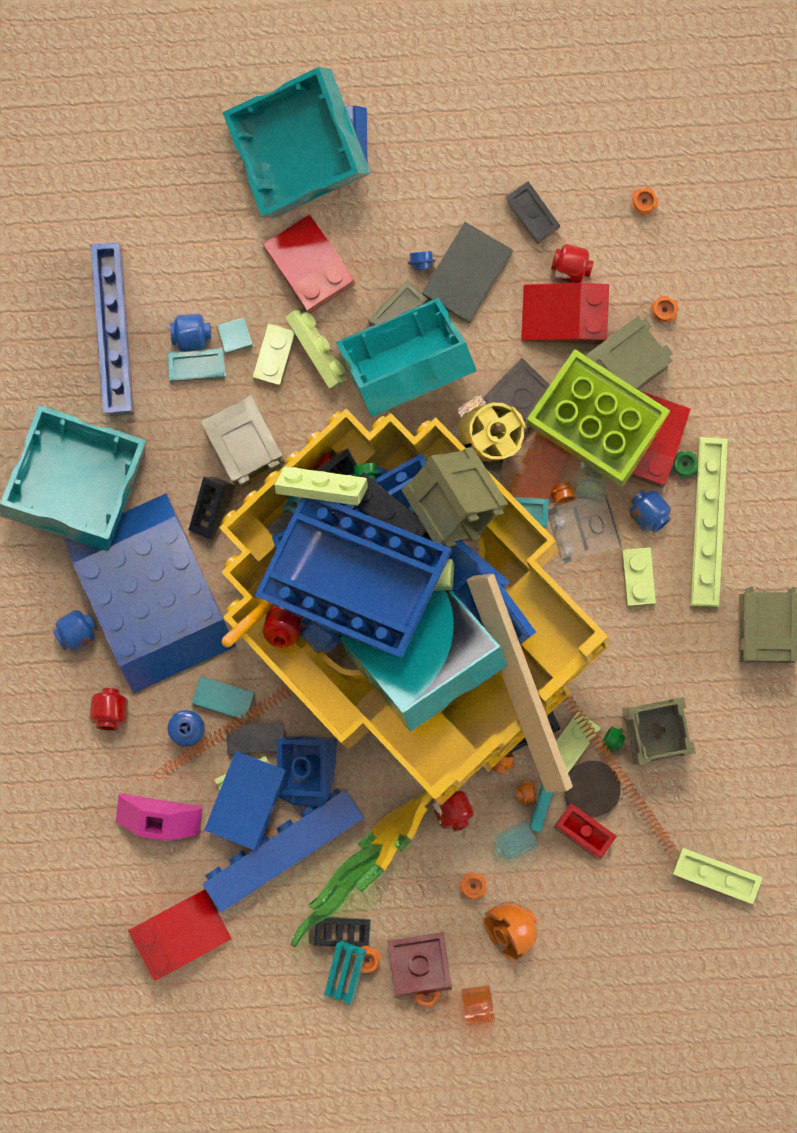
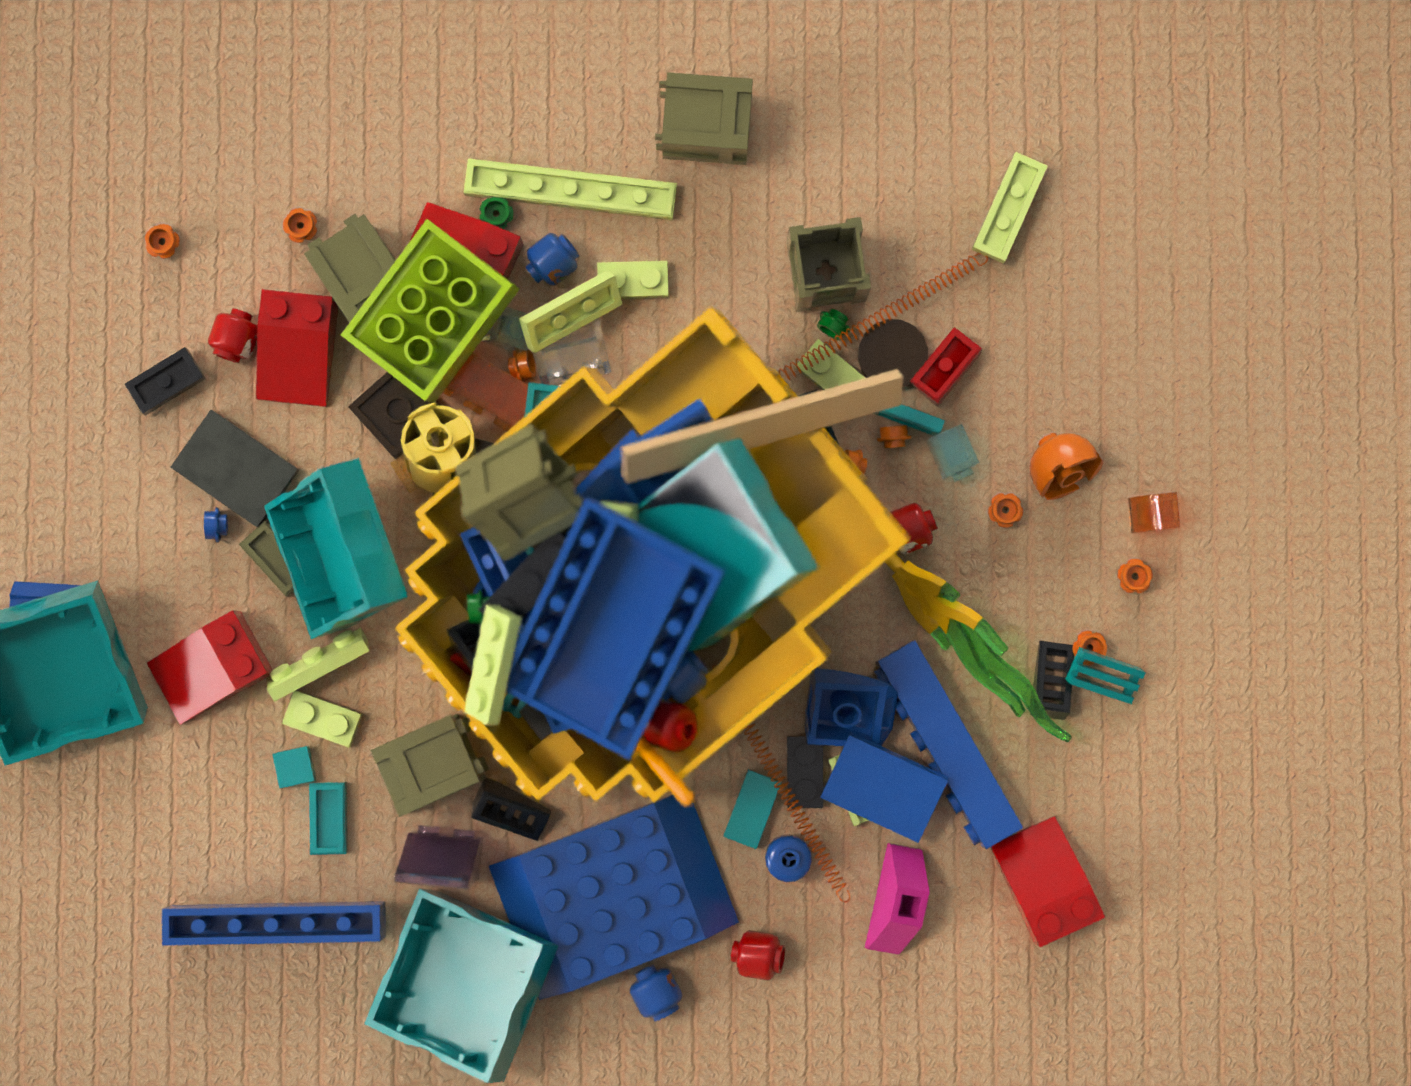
camera: 85 degrees left, 0 degrees up
(170, 455) = (440, 858): none -> clear purple slope
(190, 332) = (285, 823): blue head -> none
(419, 965) = (1100, 582): tile -> none
(607, 528) = (570, 311): none -> yellowish green plate

